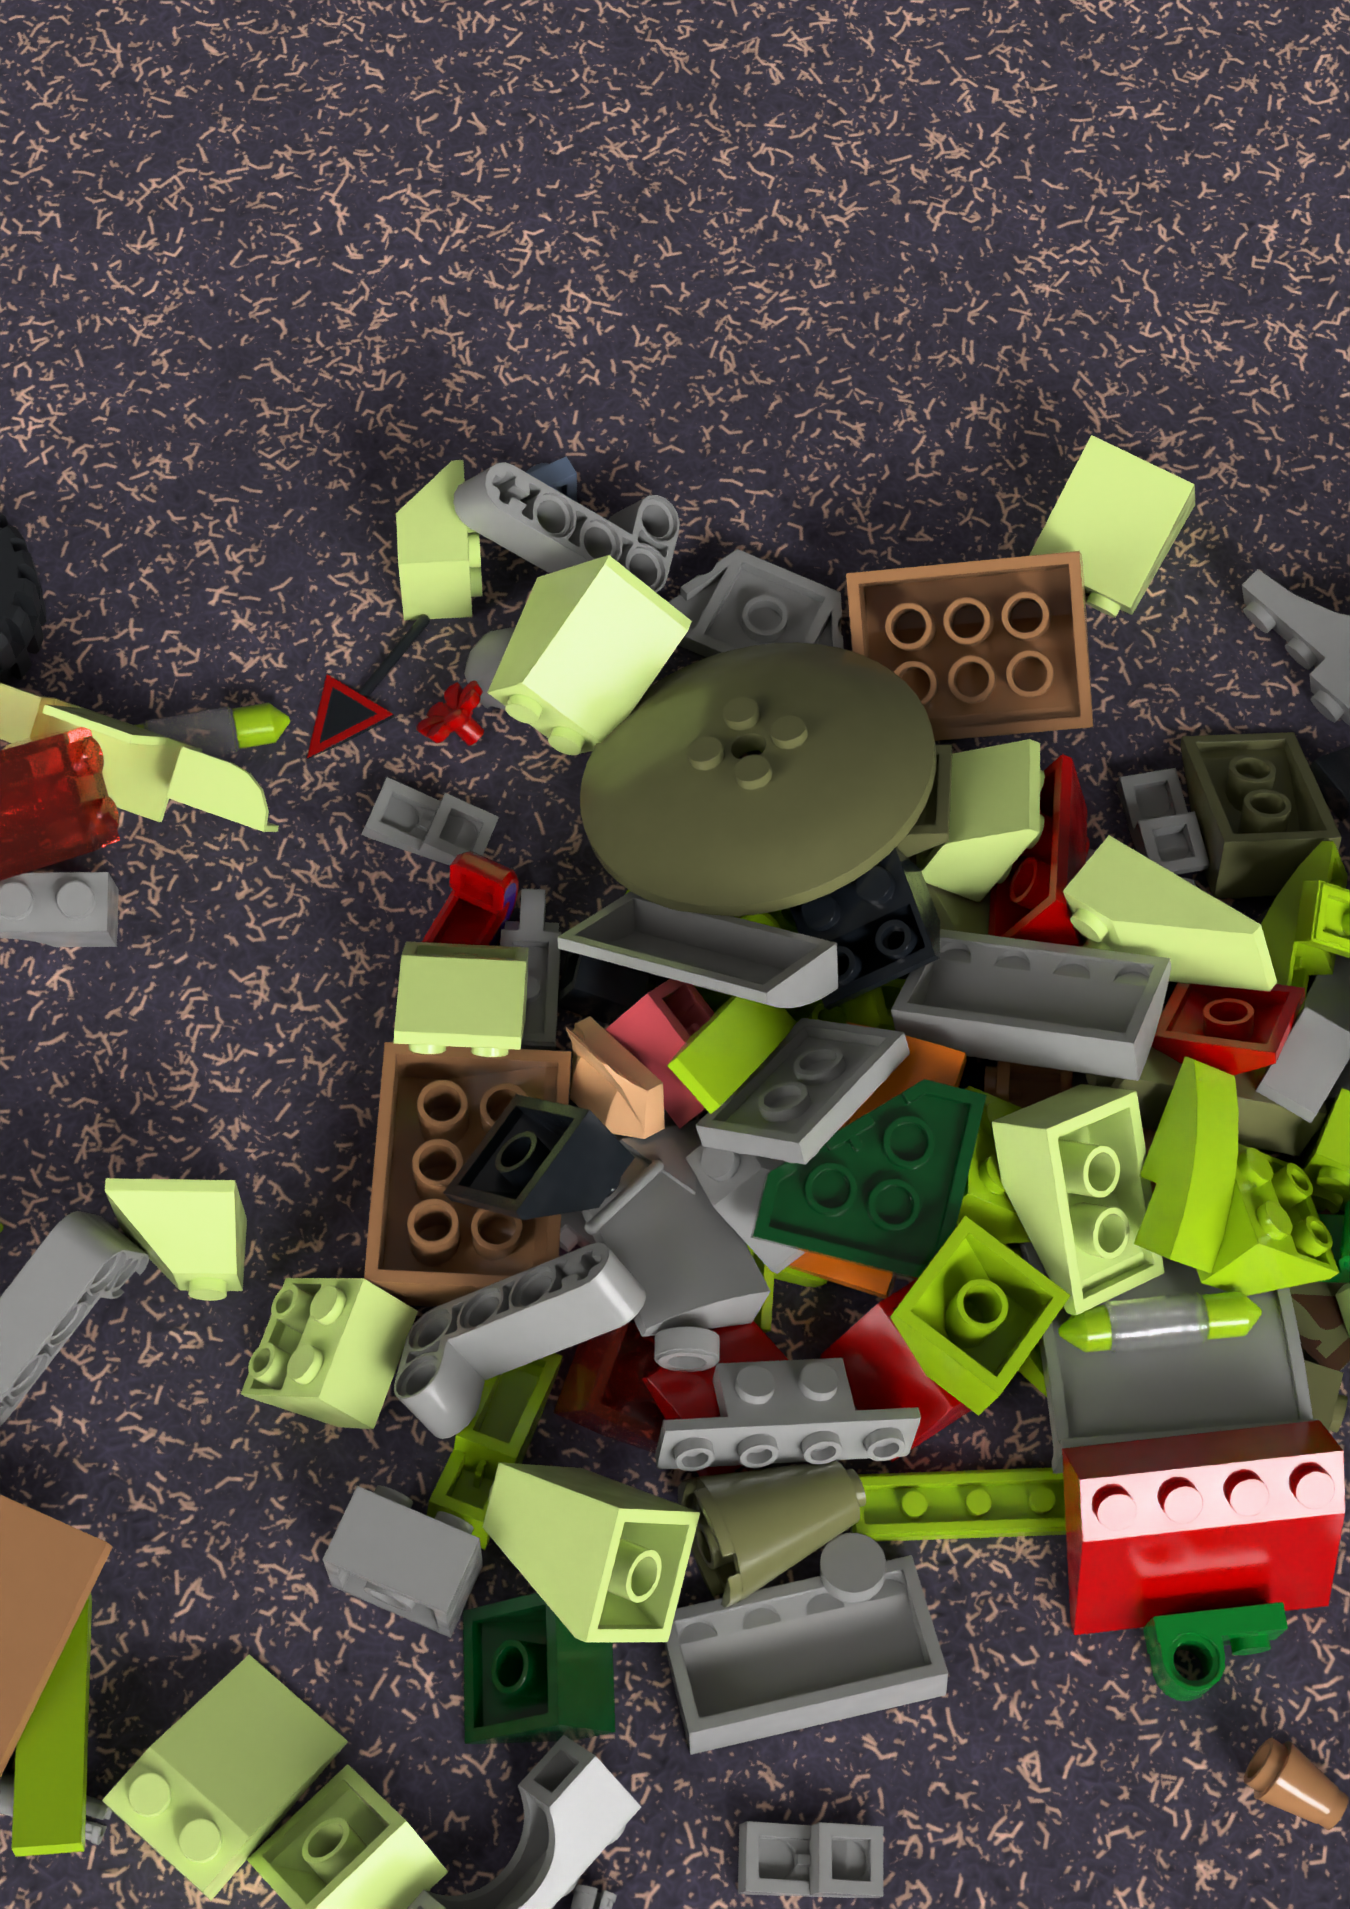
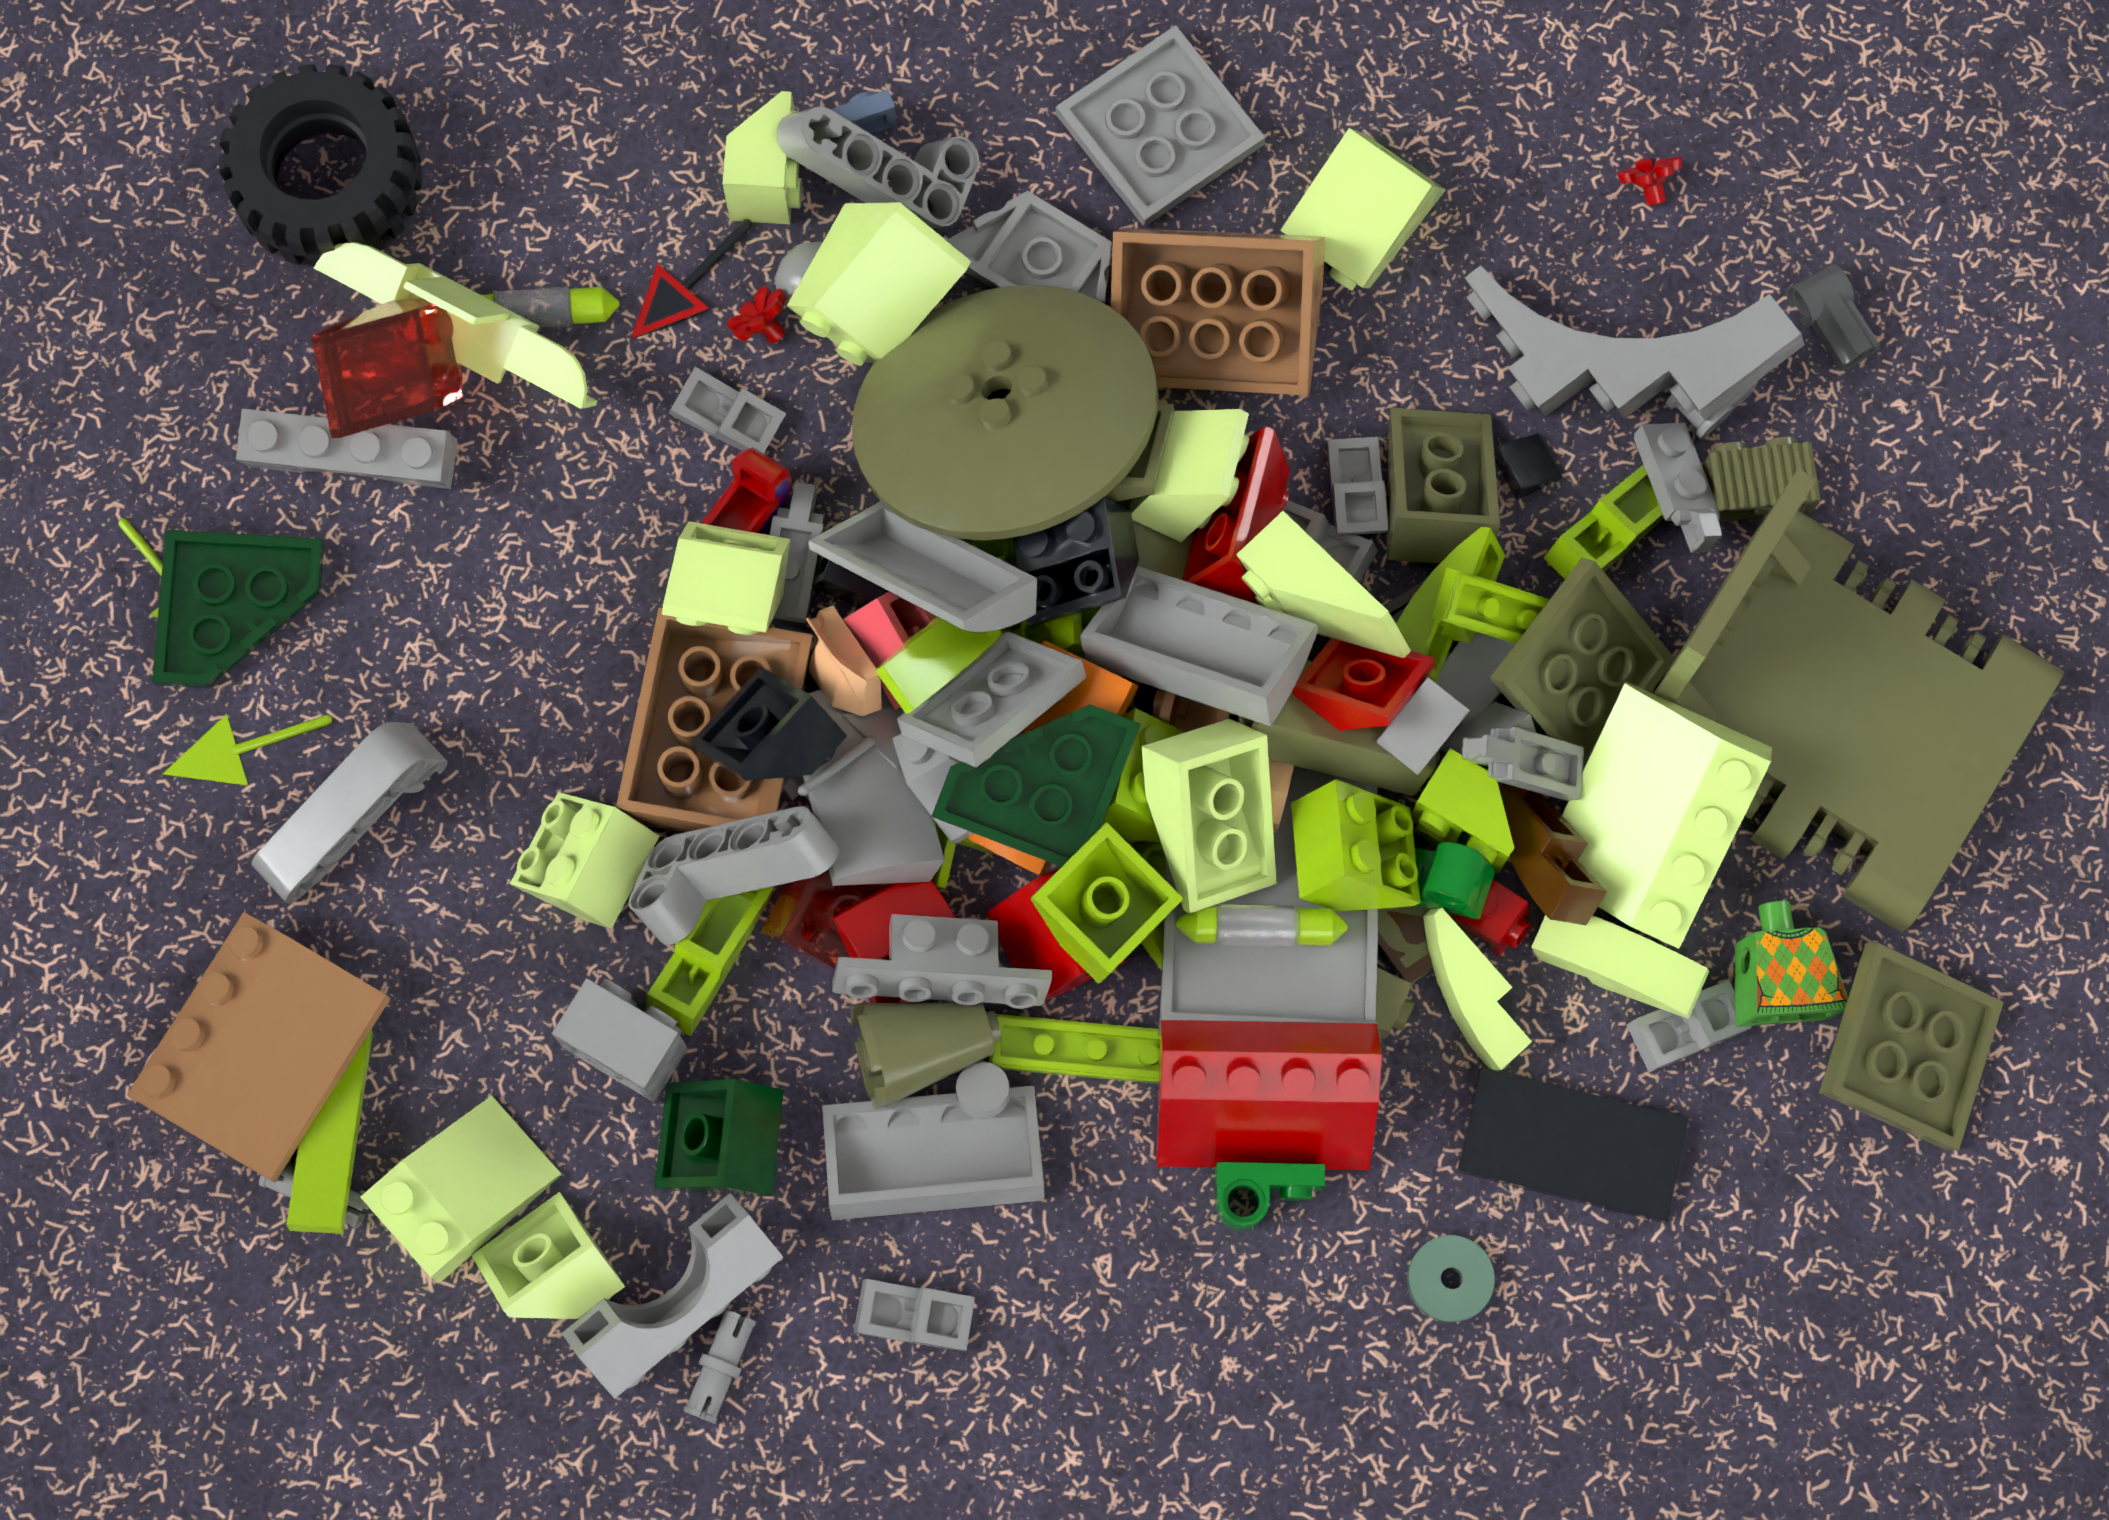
camera: 10 degrees right, 10 degrees up
(187, 1230) = (481, 745): yellowish green slope -> none
(593, 1549) = (770, 1050): yellowish green slope -> none
(687, 1349) = (868, 899): light grey tile -> none
(871, 469) = (1160, 126): none -> light grey plate
(1193, 1168) = (1305, 803): lime slope -> none
(1294, 1784) = (1311, 1308): medium nougat cone -> none

